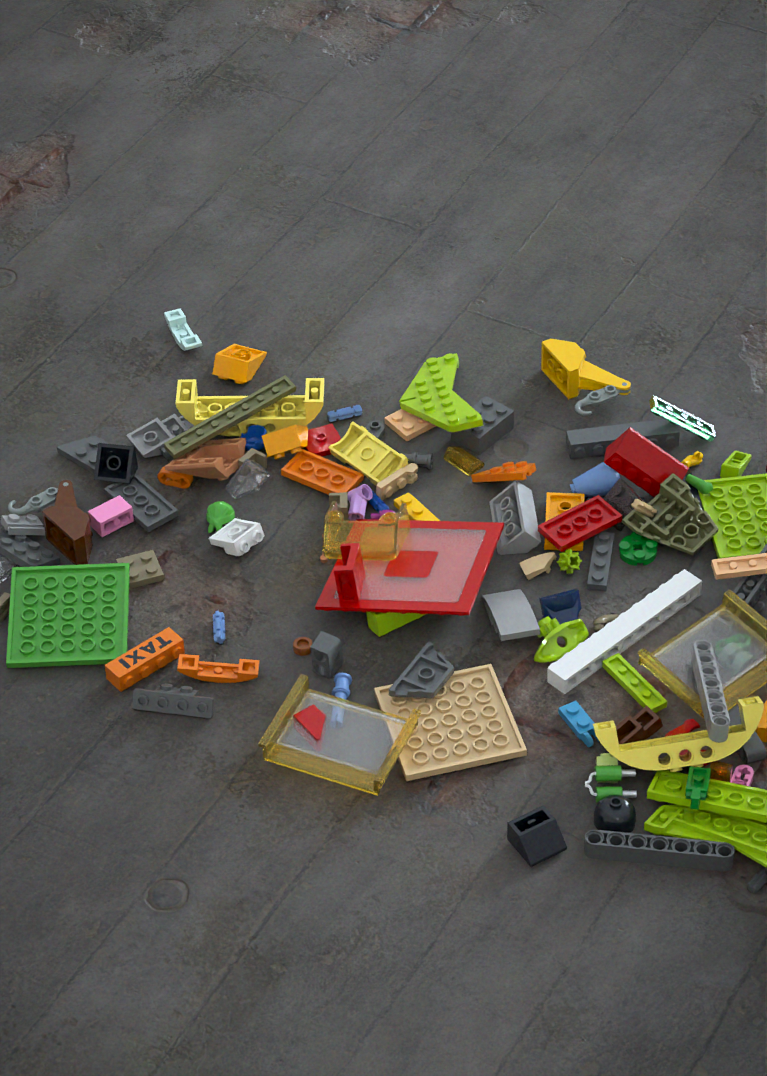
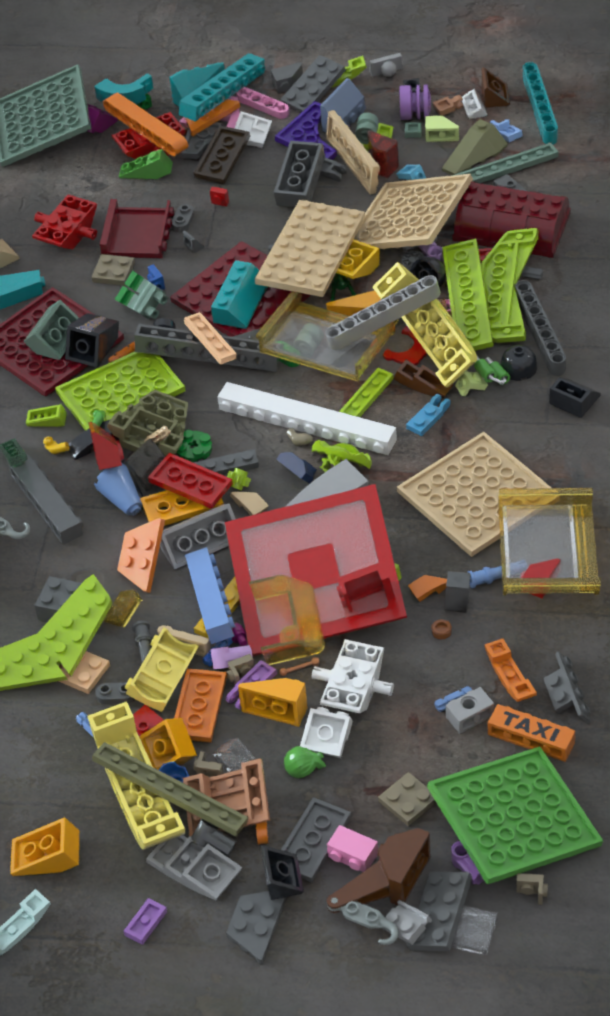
camera: 110 degrees left, 5 degrees up
(137, 398) = (145, 921): none -> medium lavender plate
(197, 629) = (469, 710): none -> light grey brick
(275, 562) = (353, 677): none -> white slope
(284, 509) = (275, 699): none -> light orange slope
(319, 506) = (259, 672): none -> medium lavender hinge
(356, 650) = (427, 585): none -> orange slope
(423, 675) = (441, 517): dark grey wing -> none
(430, 499) = (209, 595): none -> medium blue brick
(697, 785) = (474, 309): green hinge -> none

